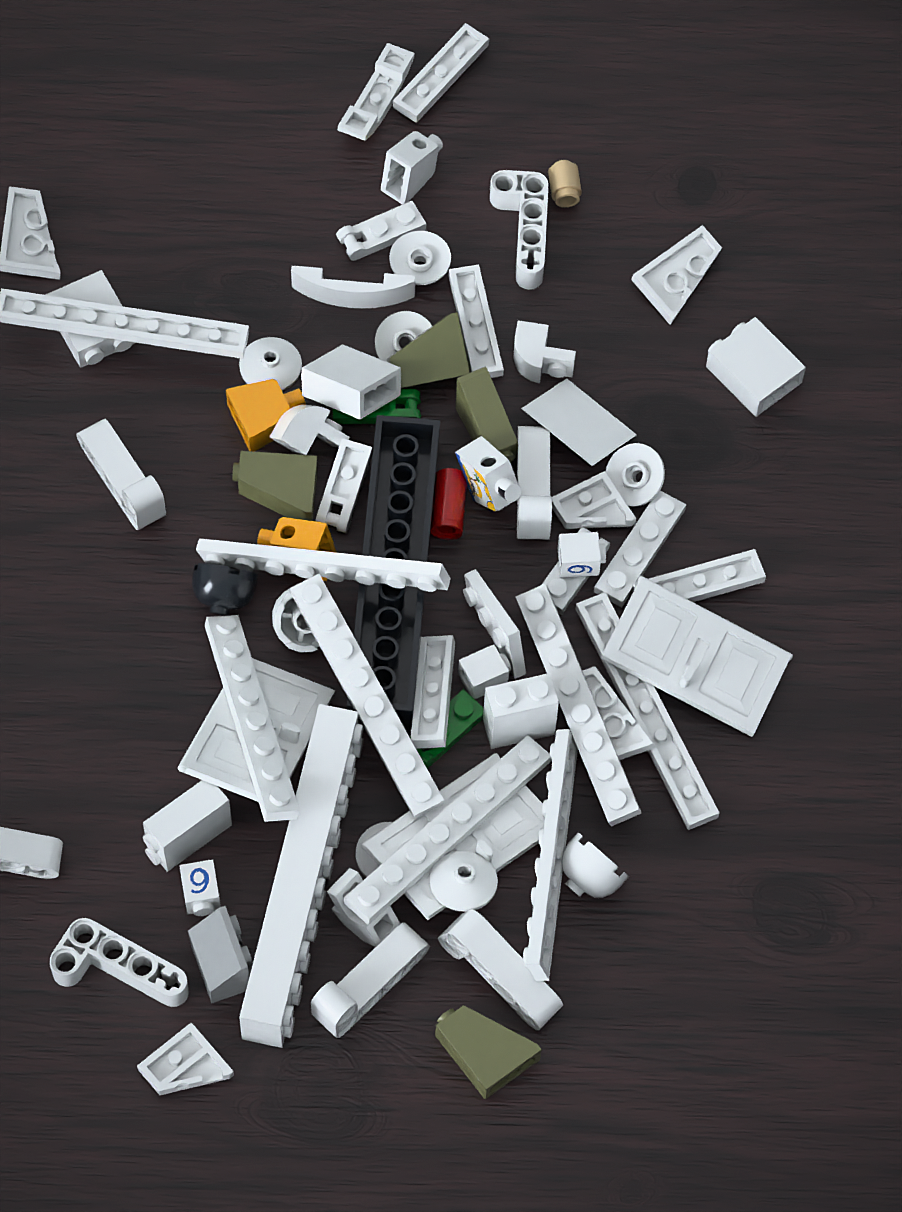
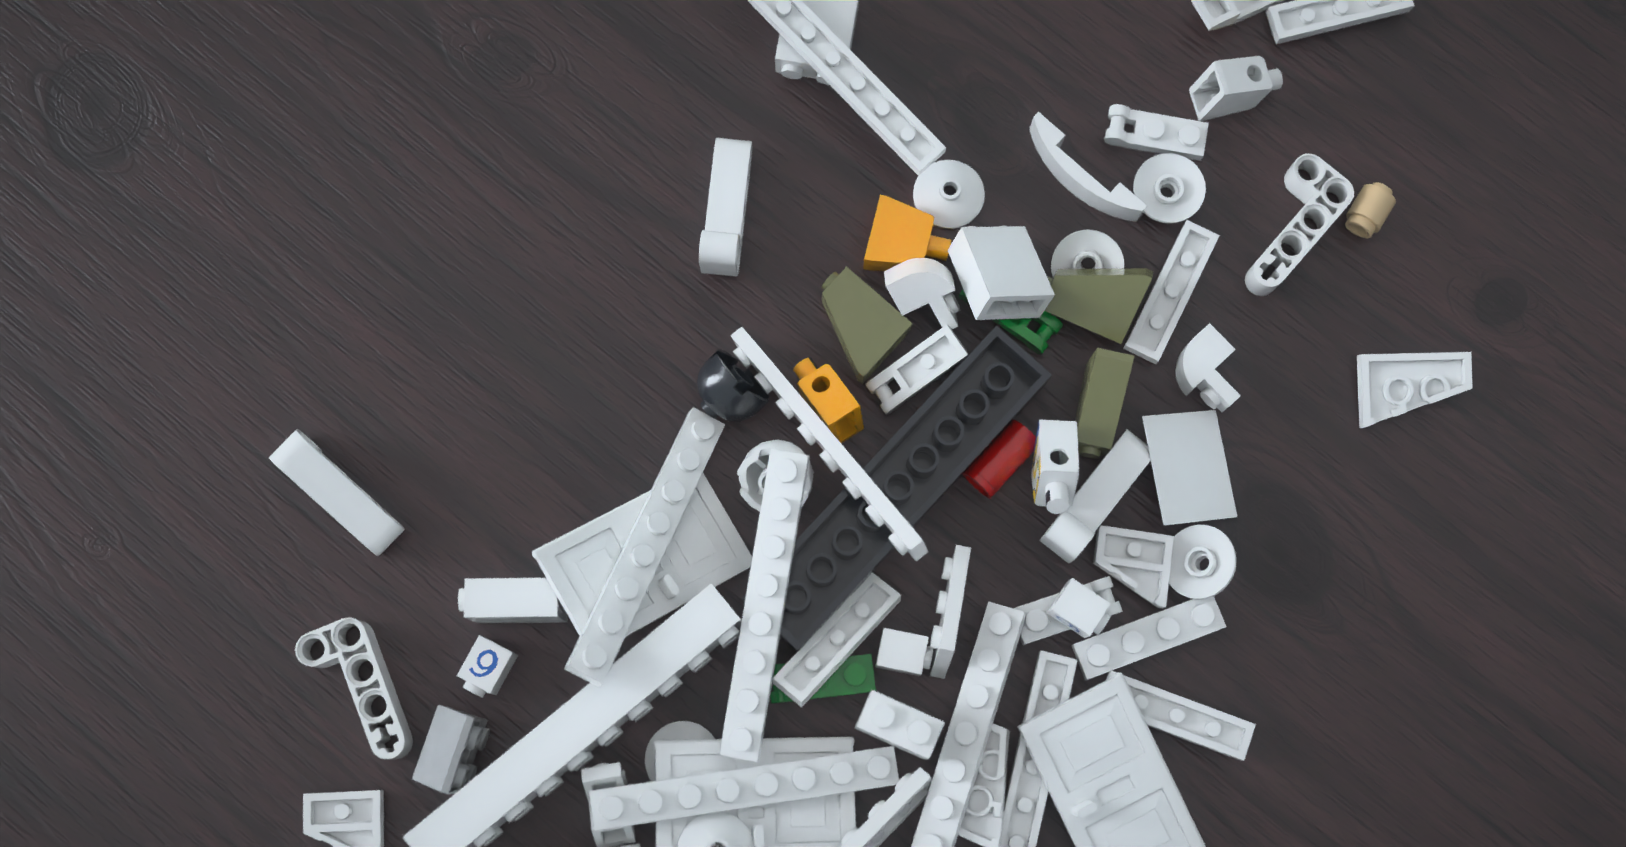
camera: 40 degrees right, 15 degrees up
(755, 366) = (1407, 534): white brick -> none

